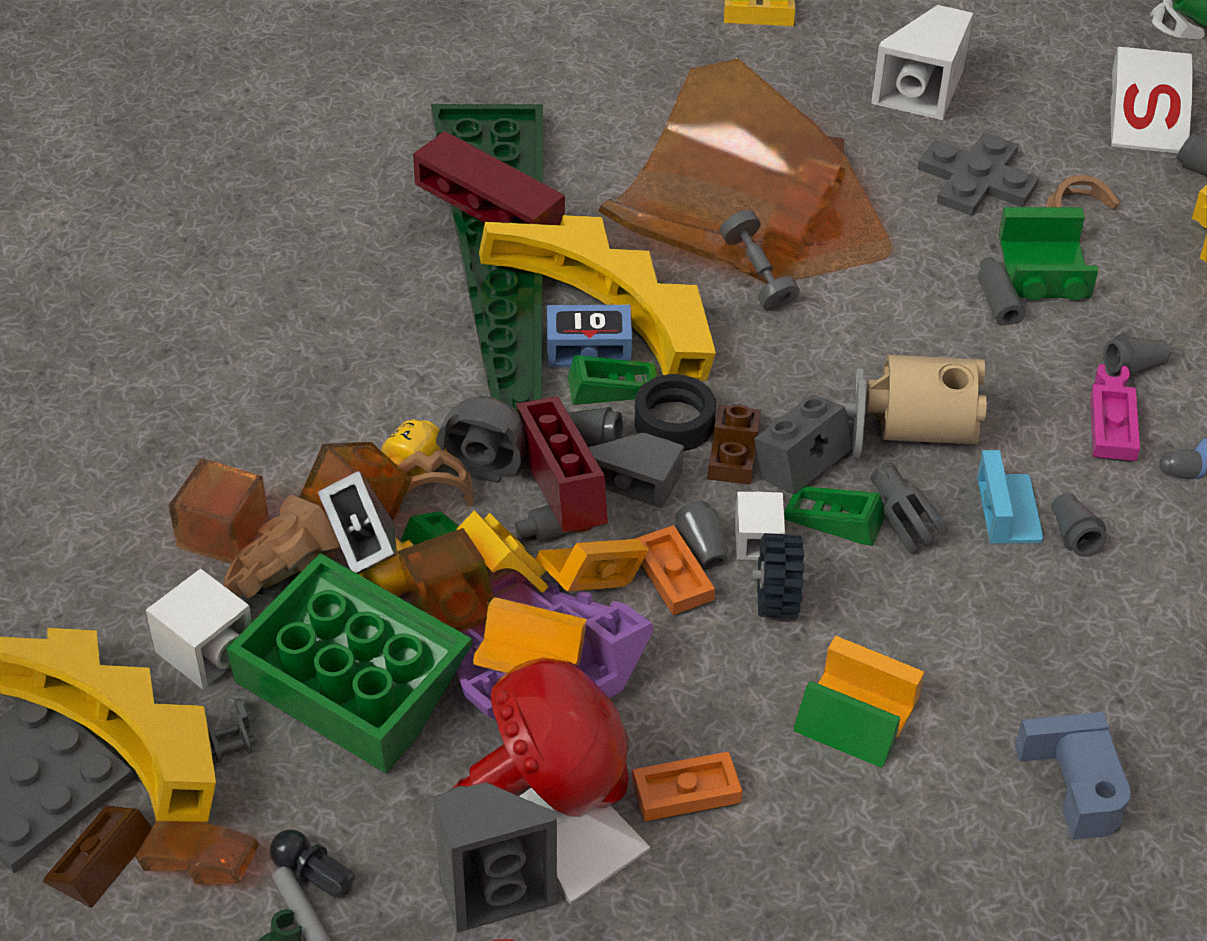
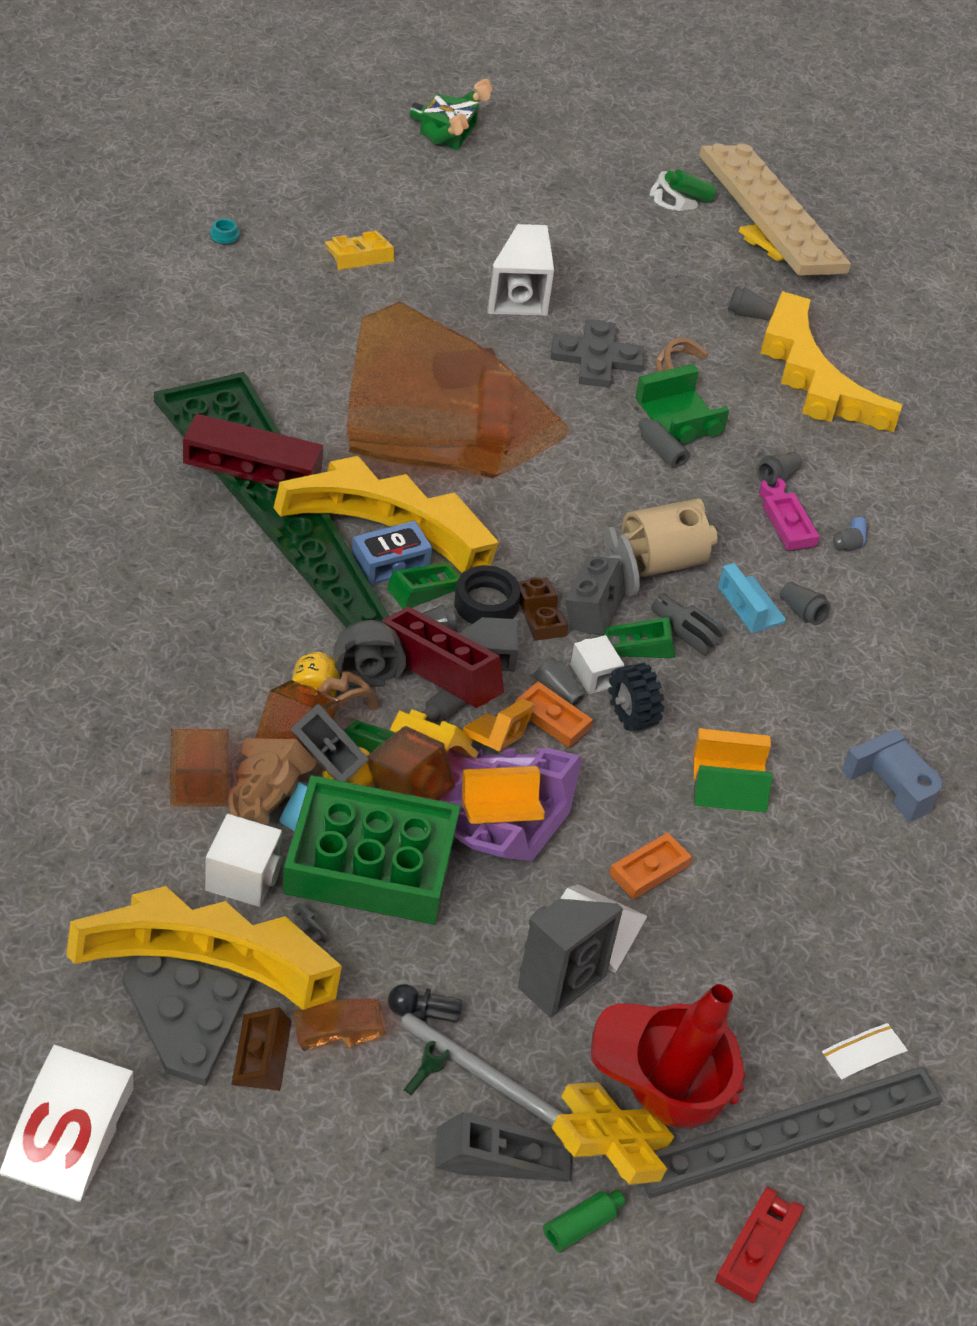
camera: 30 degrees left, 0 degrees up
(557, 739) = (572, 852): red piece -> none
(741, 228) = (462, 439): dark grey wheel -> none
(1151, 99) = (691, 266): white slope -> none

